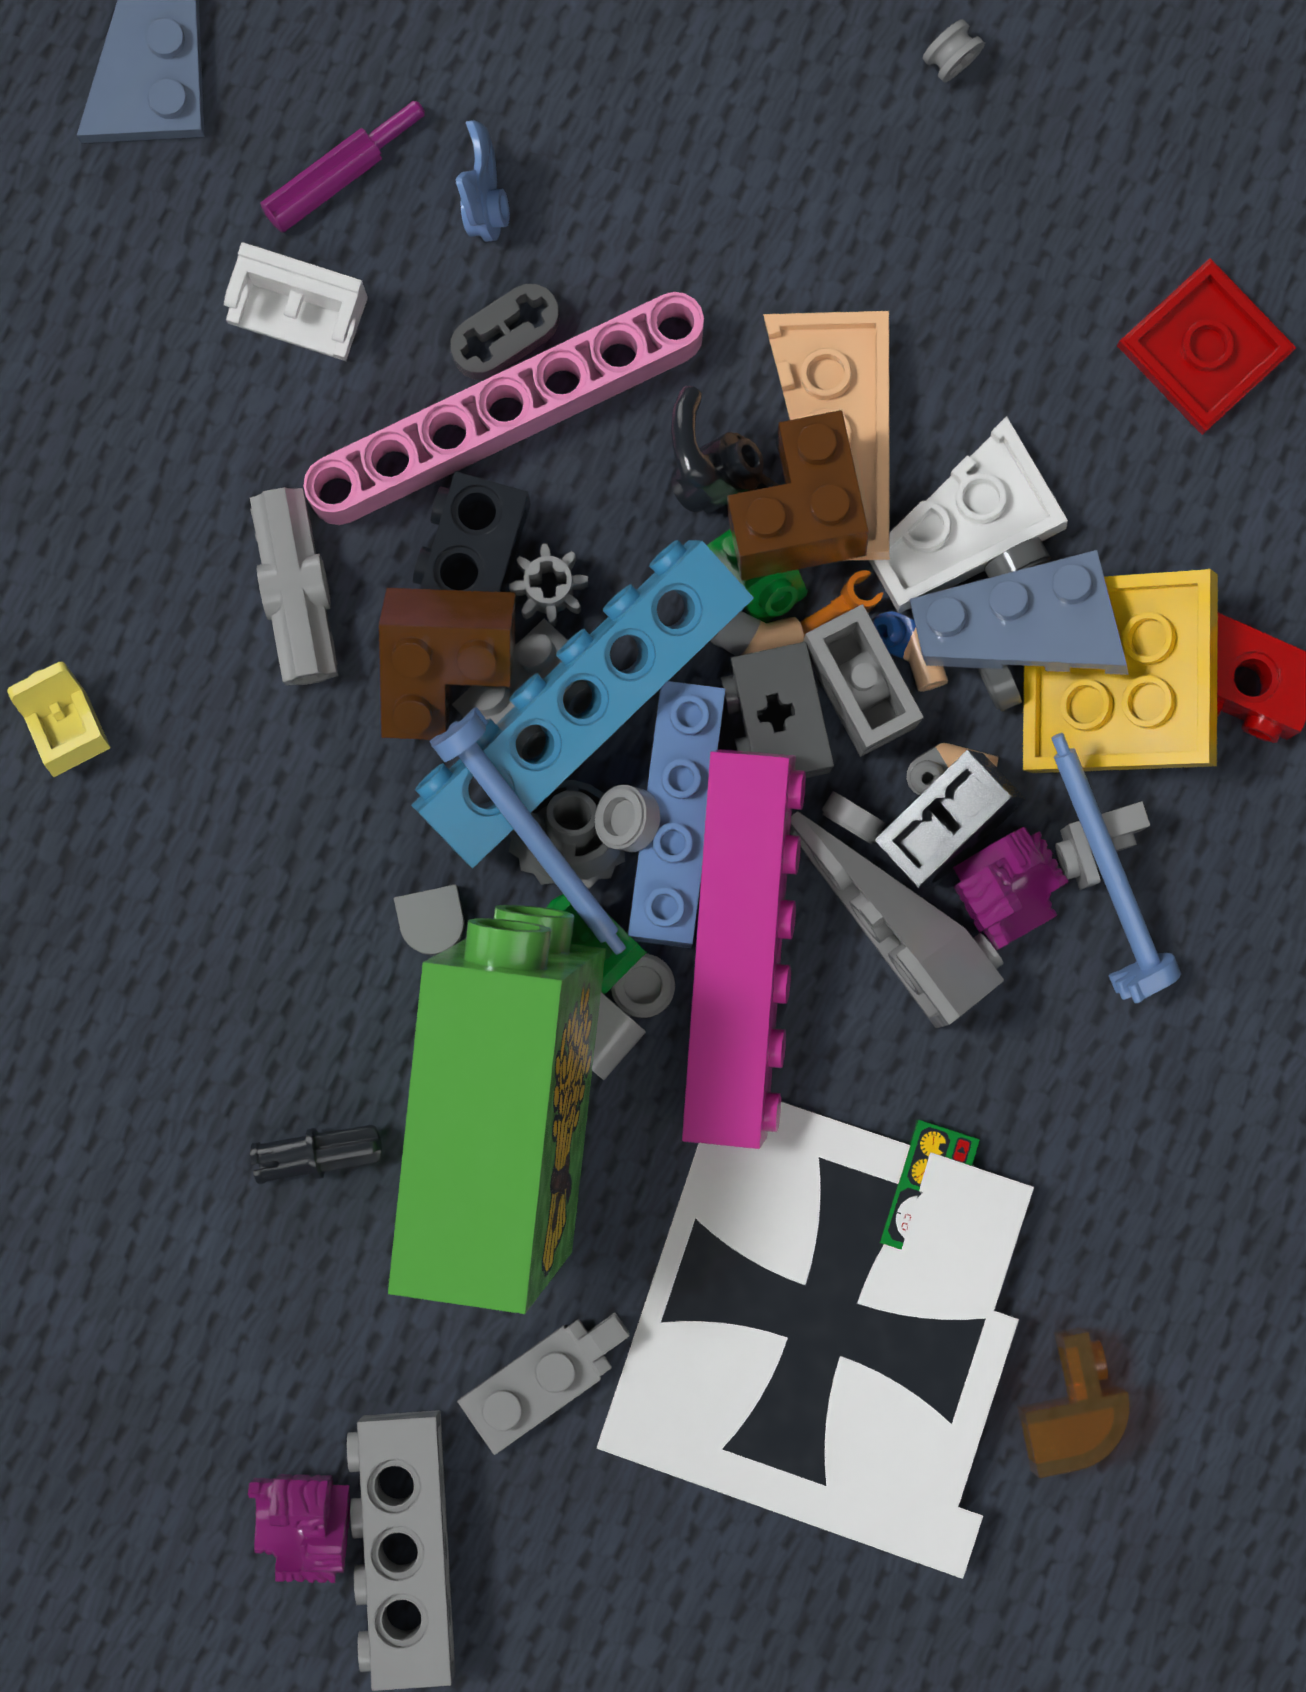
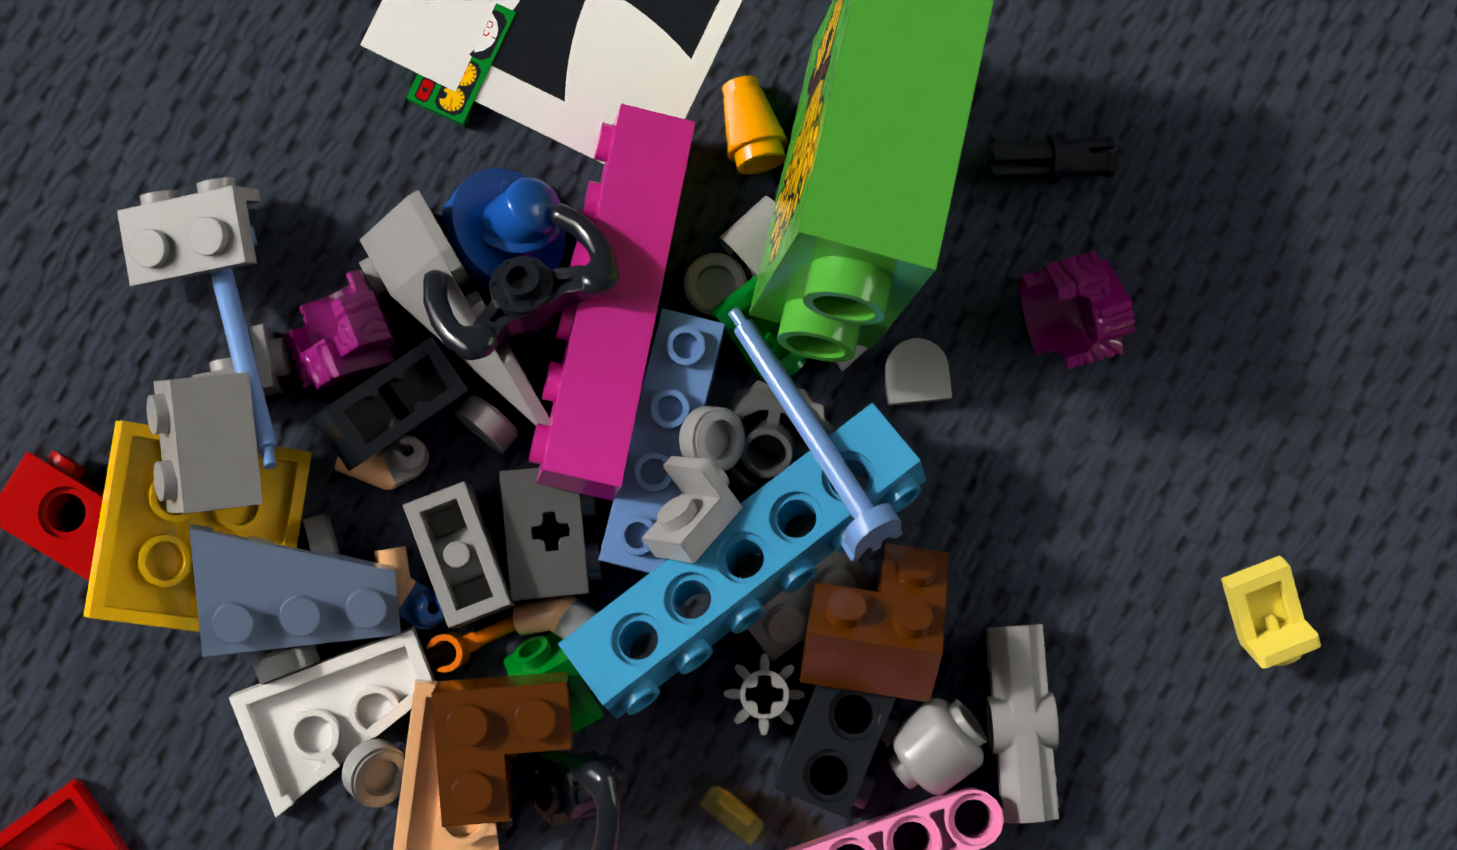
camera: 175 degrees left, 0 degrees up
(276, 998) = (1076, 309): none -> magenta hair
(373, 554) = (937, 746): none -> light grey head
(567, 469) = (732, 812): none -> clear yellow tile
(625, 1150) = (752, 130): none -> light orange cone
(633, 737) = (697, 515): none -> light grey bracket
(830, 935) = (525, 293): none -> black piece
(860, 1011) = (502, 217): none -> blue plate
(917, 468) = (374, 772): none -> light grey tile
(1124, 751) = (205, 443): none -> light grey brick
(1175, 967) = (188, 234): none -> bracket

